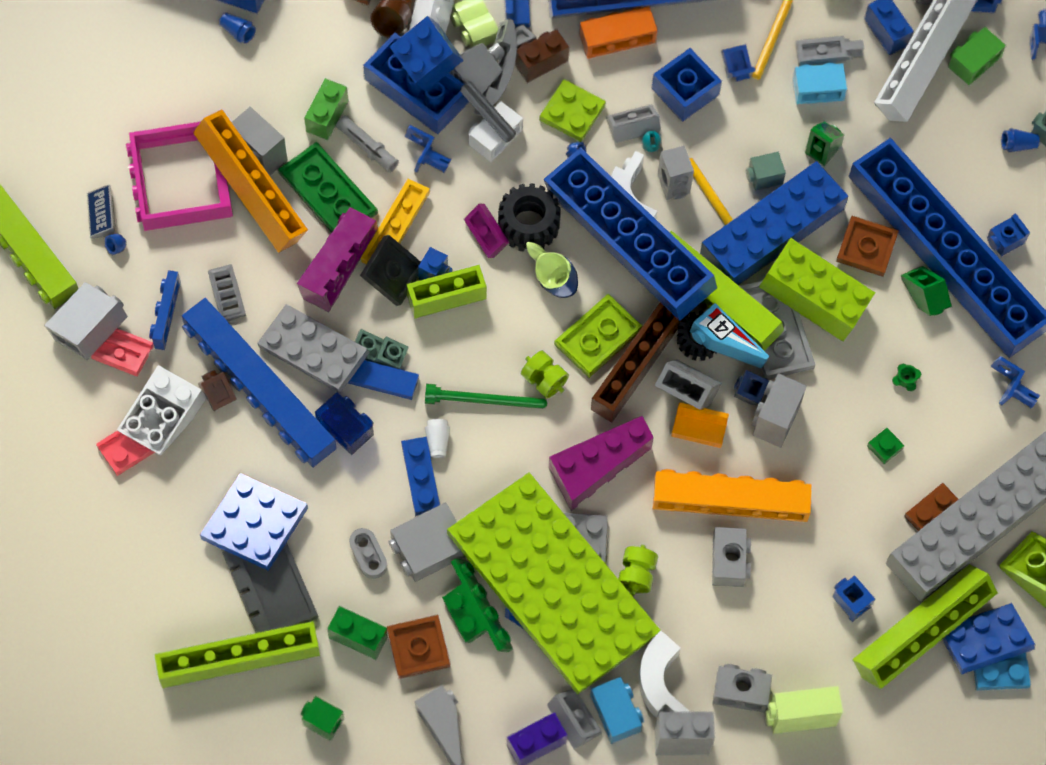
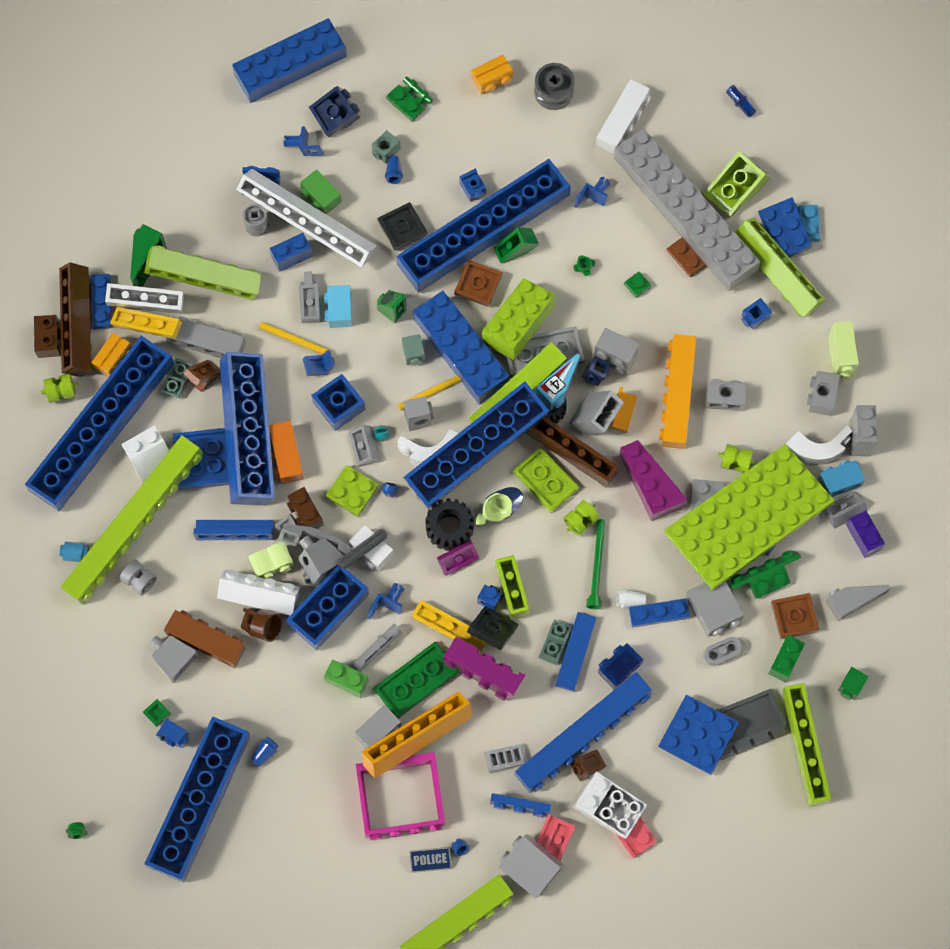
camera: 85 degrees left, 5 degrees up
(313, 348) = (556, 690): light grey plate -> none
(426, 53) = (316, 590): blue brick -> none
(939, 153) = (402, 226): none -> pearl dark grey plate

